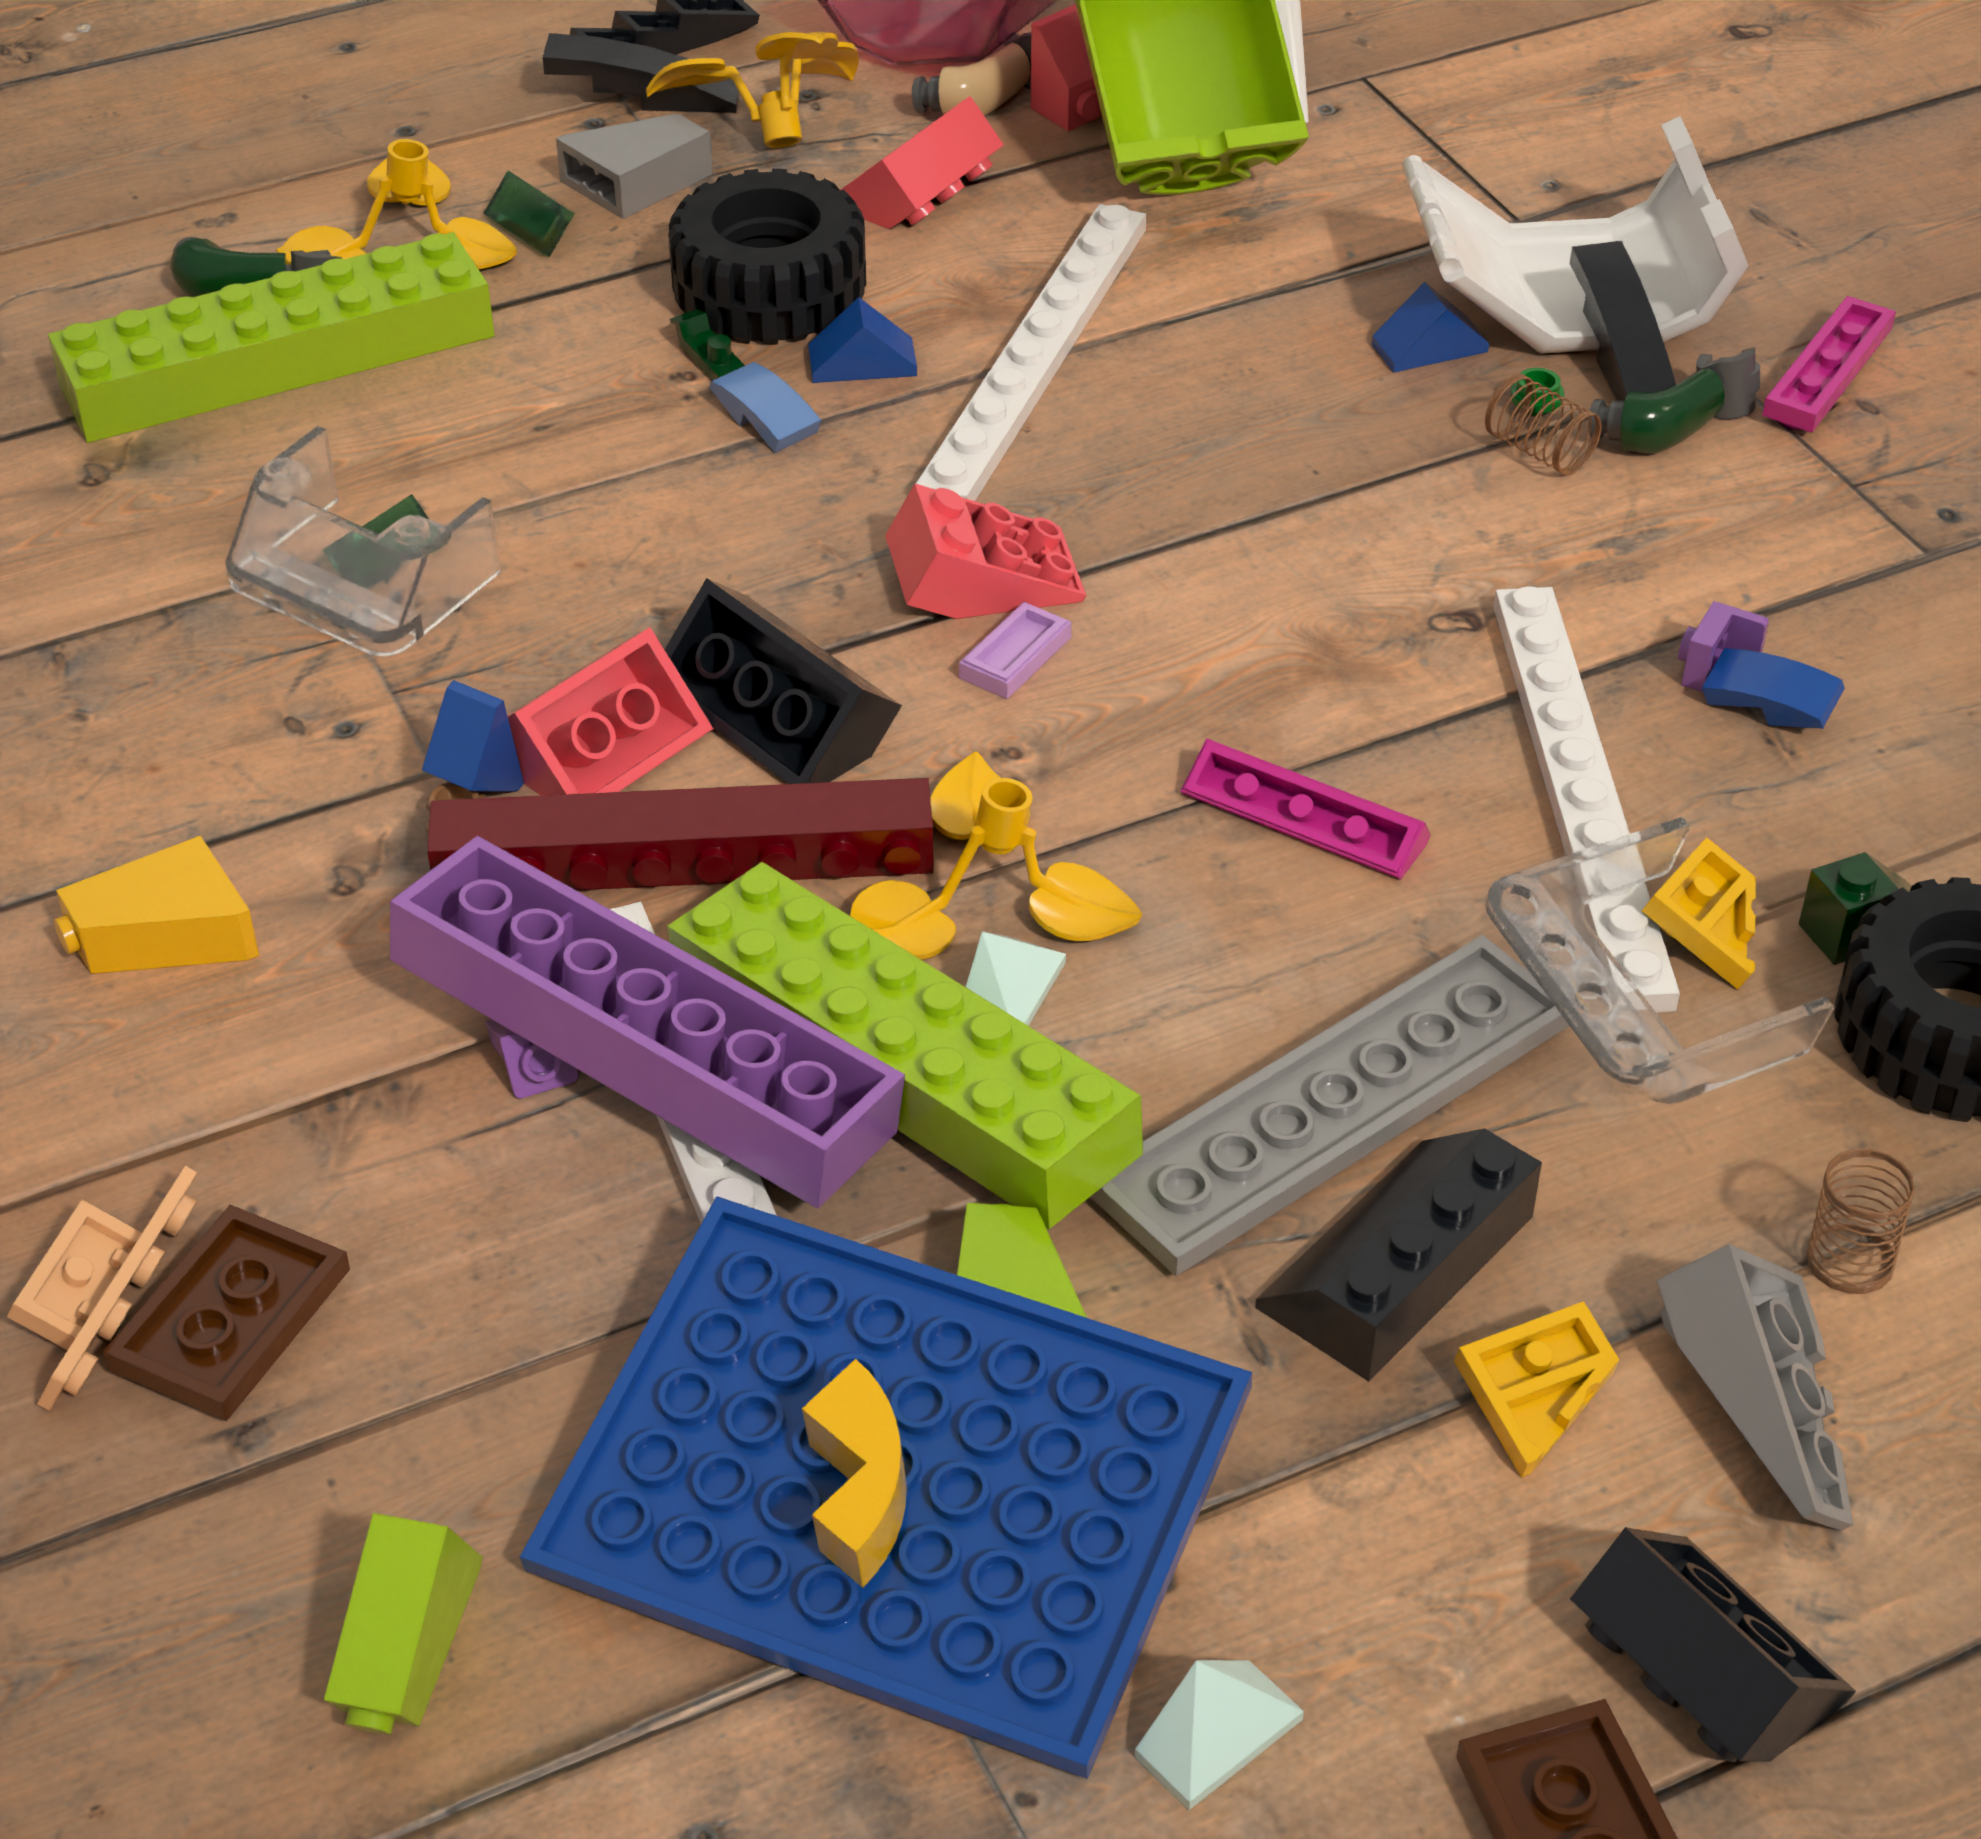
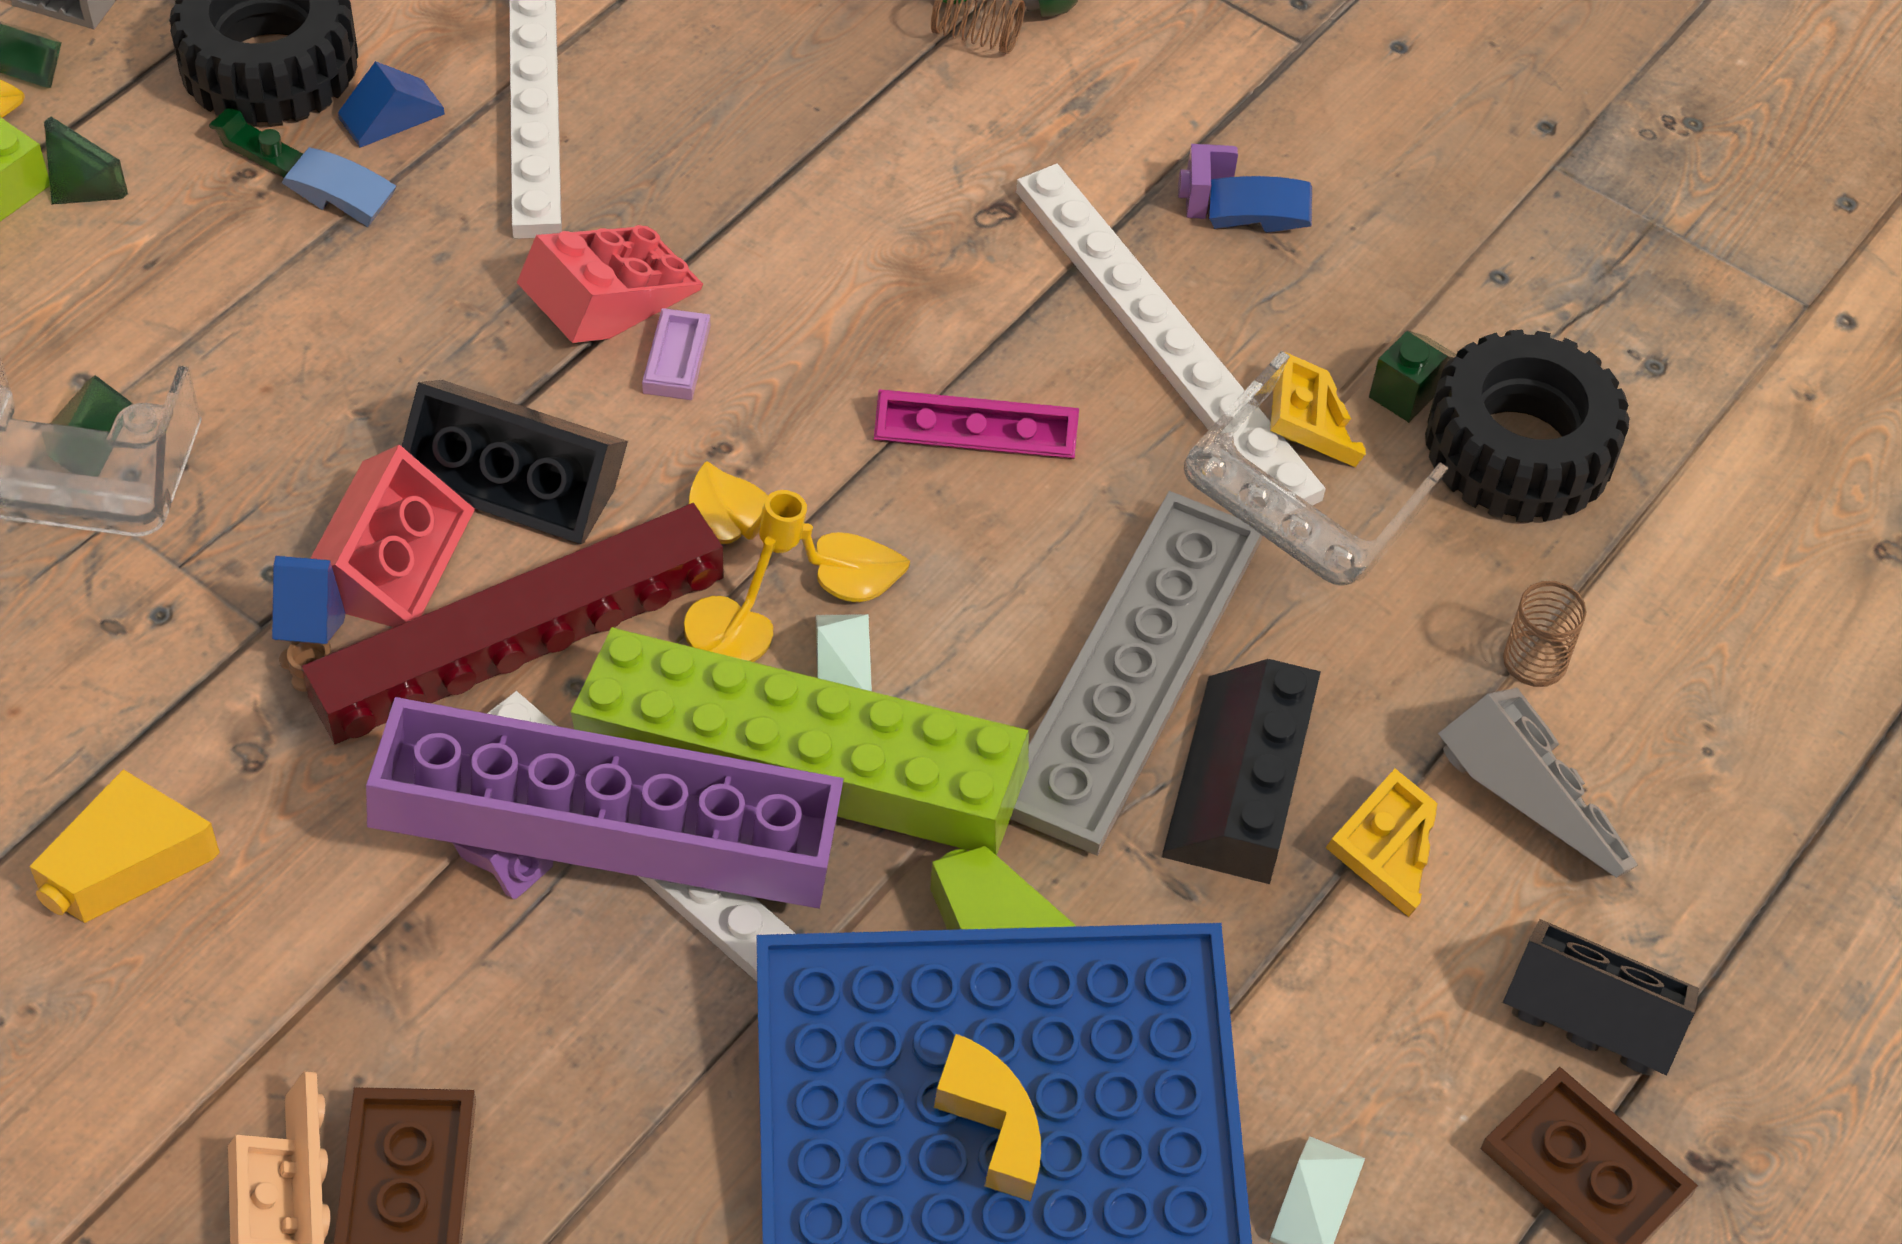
camera: 30 degrees left, 10 degrees up
(524, 324) = (80, 168): none -> clear green slope

